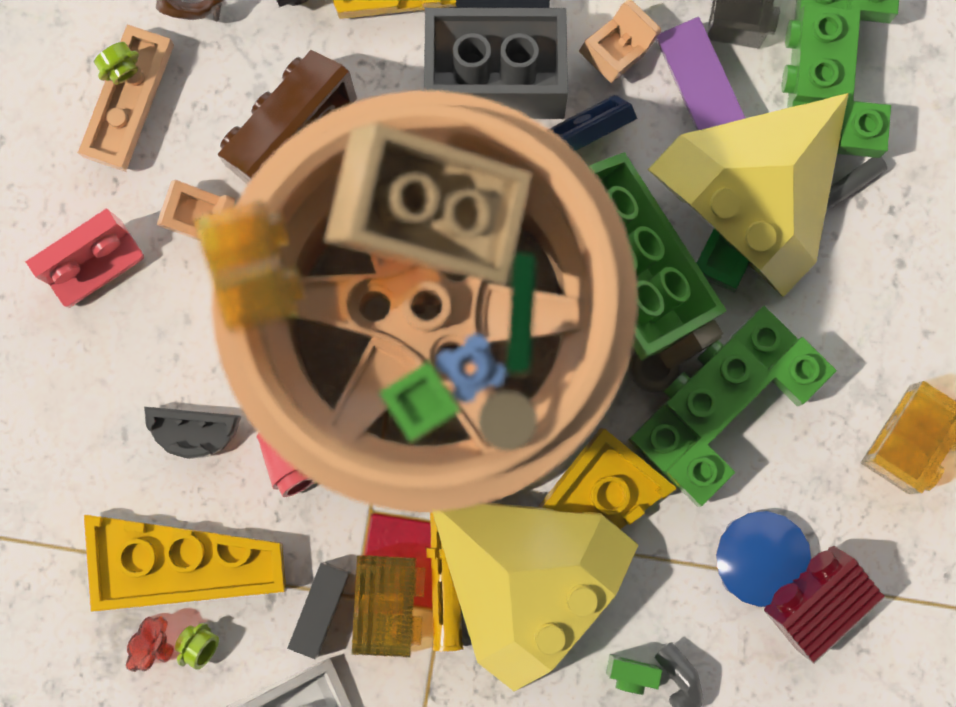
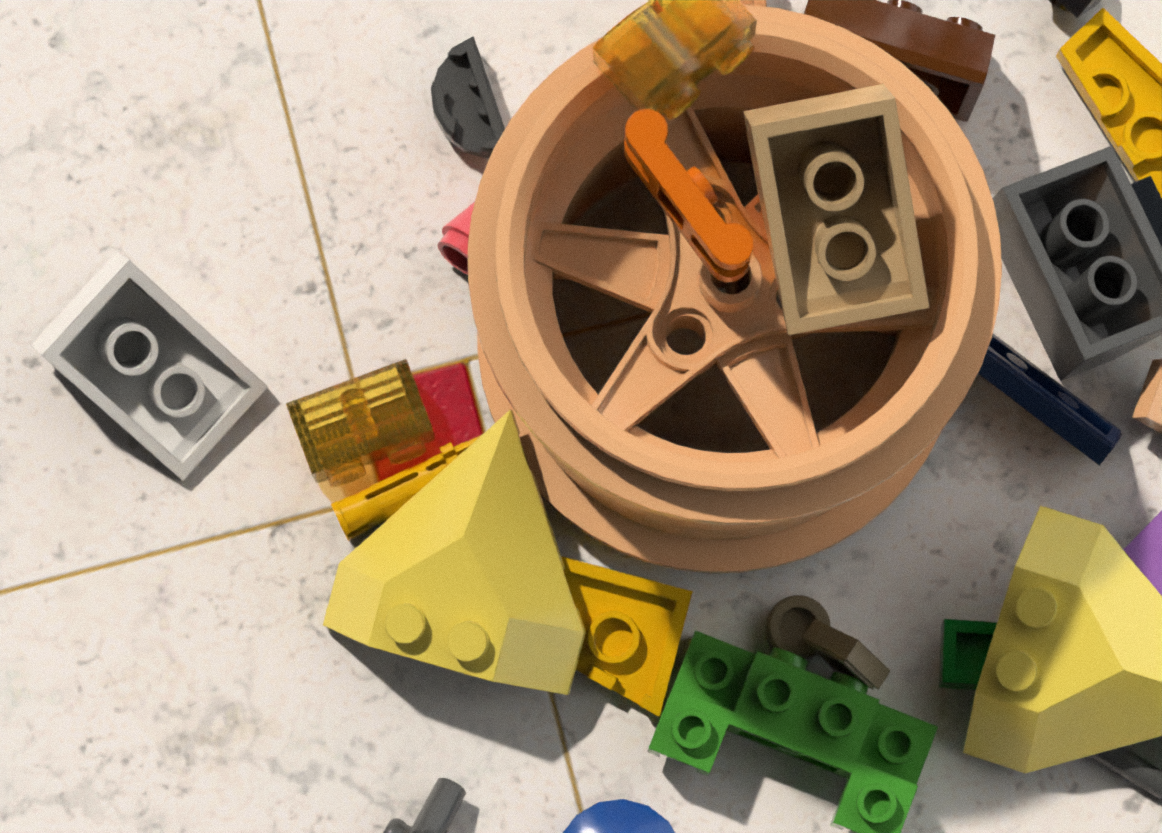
camera: 65 degrees right, 5 degrees down
(148, 645) = (194, 168): clear red plant -> none
(162, 564) = (297, 147): yellow wing -> none
(196, 646) = (216, 223): lime plate -> none
(319, 610) = (320, 348): dark grey piece -> none
(371, 312) = (686, 198): none -> orange plate
(419, 402) = (609, 294): bright green plate -> none
(468, 385) = (672, 355): medium blue plate -> none
(507, 421) = (632, 403): dark tan tile -> none
(521, 315) = (757, 362): dark green tile -> none
(633, 674) = (404, 757): bright green plate -> none
(670, 286) = (913, 545): bright green slope -> none

